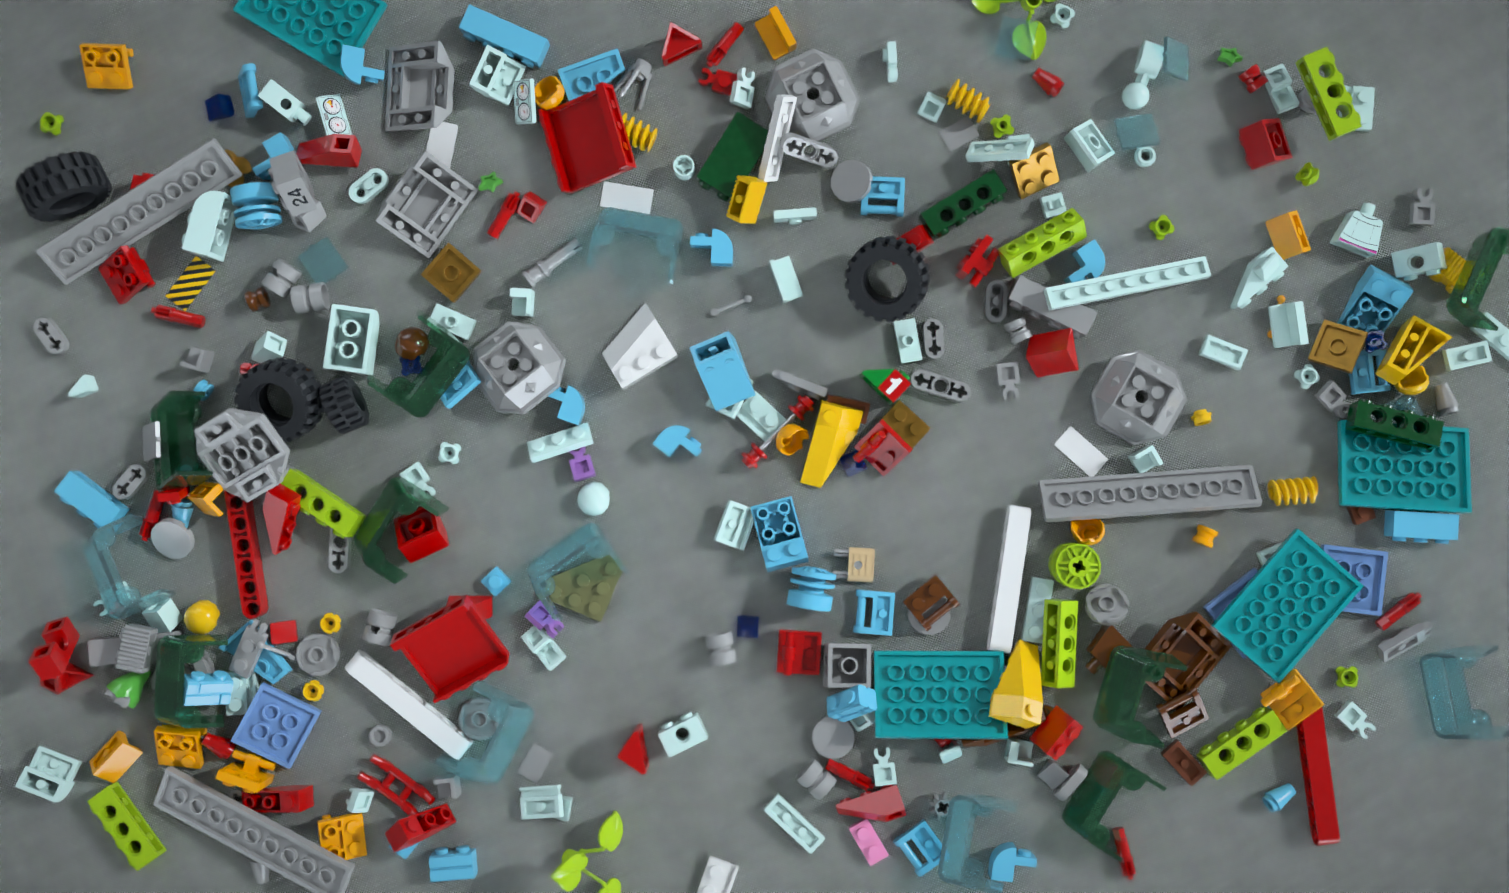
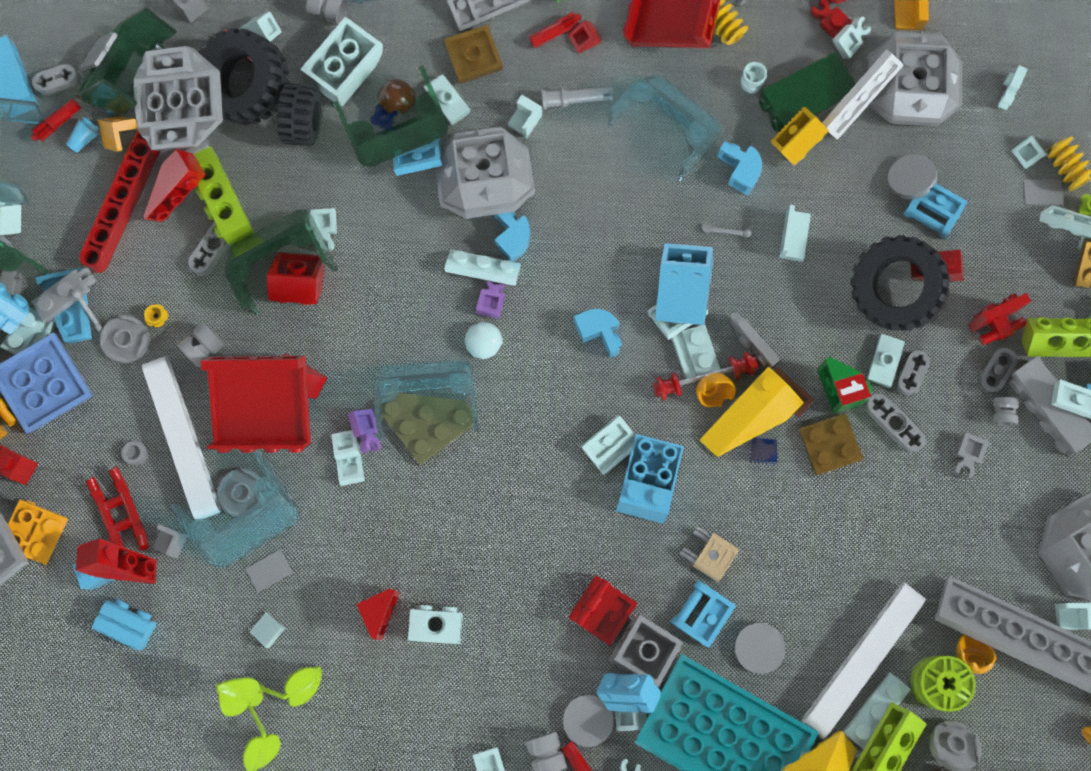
camera: 30 degrees right, 10 degrees down
(172, 538) = (59, 150): light grey tile -> none
(173, 496) = (86, 109): red plate -> none
(201, 617) = (38, 240): yellow hair -> none
(203, 386) = (180, 36): medium azure bush -> none
(283, 632) = (106, 298): red slope -> none
(307, 690) = (96, 365): yellow plate -> none
(359, 800) = (74, 505): light aqua tile -> none
(444, 456) = (369, 211): light aqua plate -> none
(496, 581) = (340, 366): medium azure plate -> none
(541, 802) = (251, 612): light aqua plate -> none
(626, 197) = (681, 77): white sticker -> none
(639, 349) = (612, 223): white wedge -> none
(720, 648) = (524, 559): light grey wheel -> none
(747, 626) = (564, 554): clear blue slope -> none
(795, 216) = (838, 179): light aqua plate -> none
(802, 143) = (871, 115): light grey beam -> none
(811, 588) = (653, 549): medium azure wheel -> none
(882, 448) = (803, 449): red plate -> none
(925, 597) = (765, 628): reddish brown plate -> none
(989, 183) = (1049, 251): dark green brick -> none
(1052, 353) = (1030, 453): red slope -> none
(1081, 451) = (1007, 572): white sticker -> none

